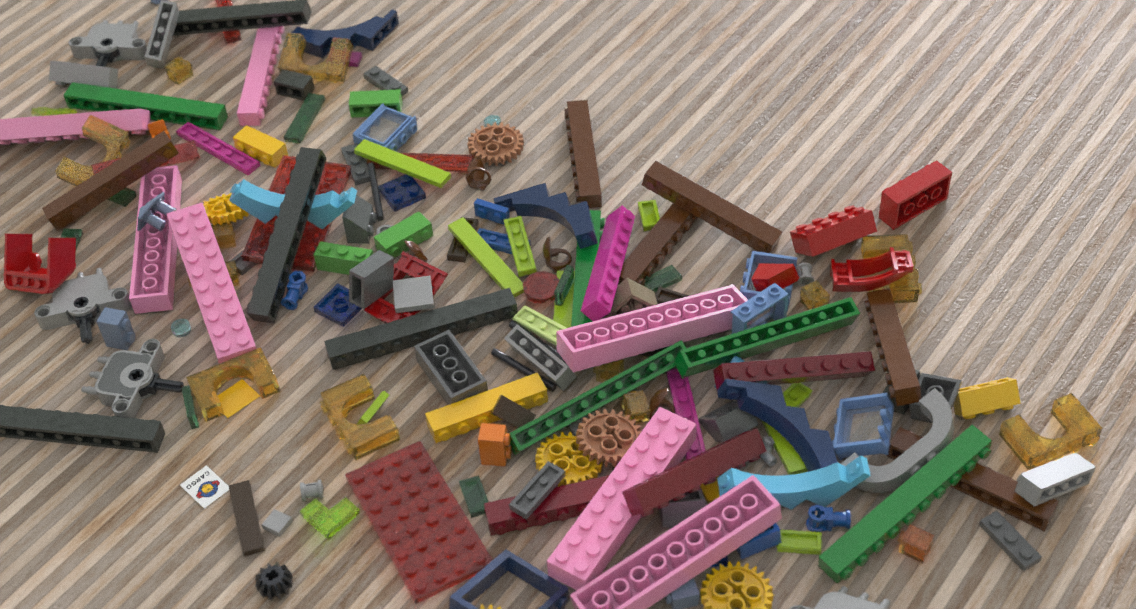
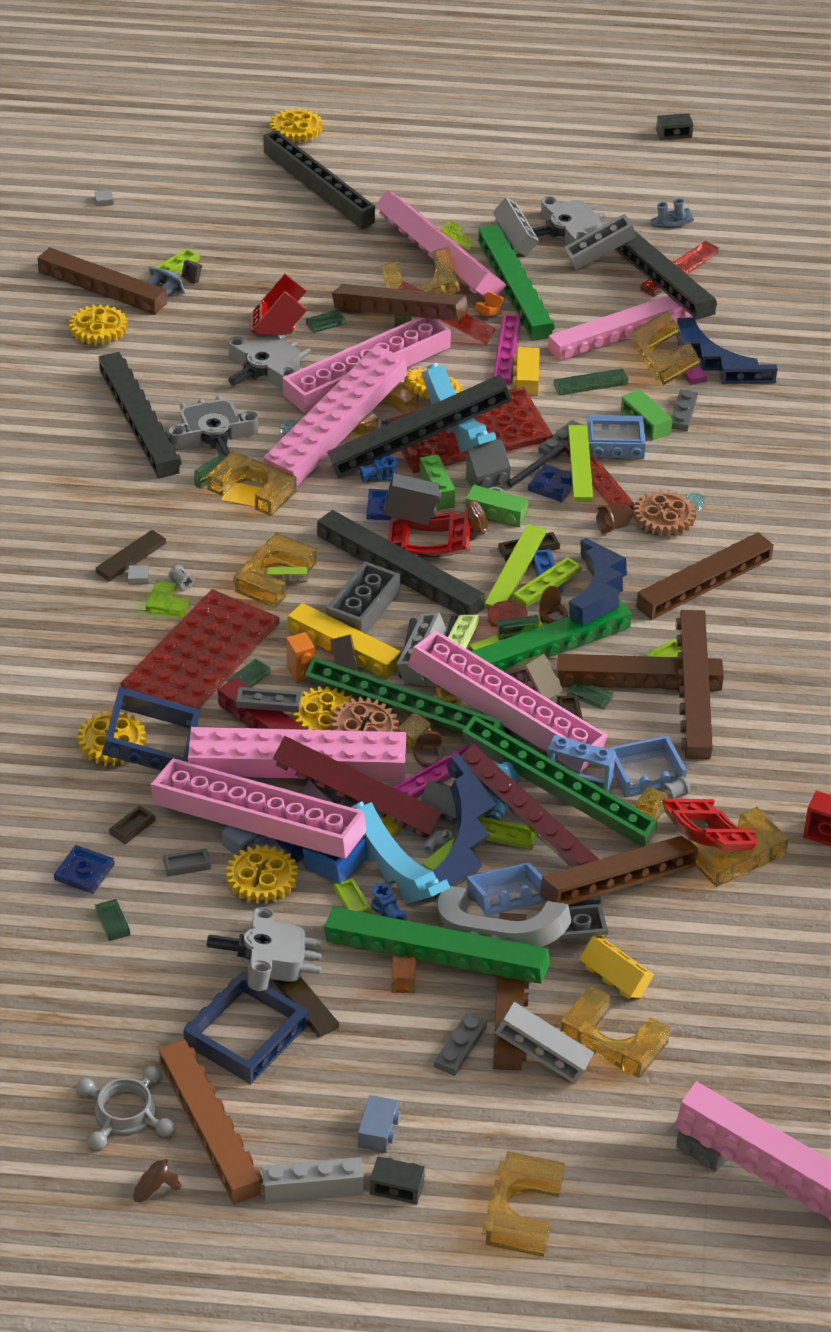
camera: 55 degrees right, 5 degrees down
(116, 328) = (250, 388): sand blue brick -> none
(147, 212) = (372, 337): sand blue connector -> none
(178, 70) = (576, 278): clear yellow brick -> none
(205, 486) = (144, 519): white sticker -> none
(274, 581) = (80, 596): black gear -> none
(294, 84) = (623, 353): pearl dark grey brick -> none
(413, 294) = (424, 536): light grey tile -> none
(491, 211) = (572, 541): blue plate -> none
(608, 264) = (564, 641): dark pink brick -> none
(768, 274) = (641, 760): red slope -> none
(833, 231) = (743, 782): red brick -> none

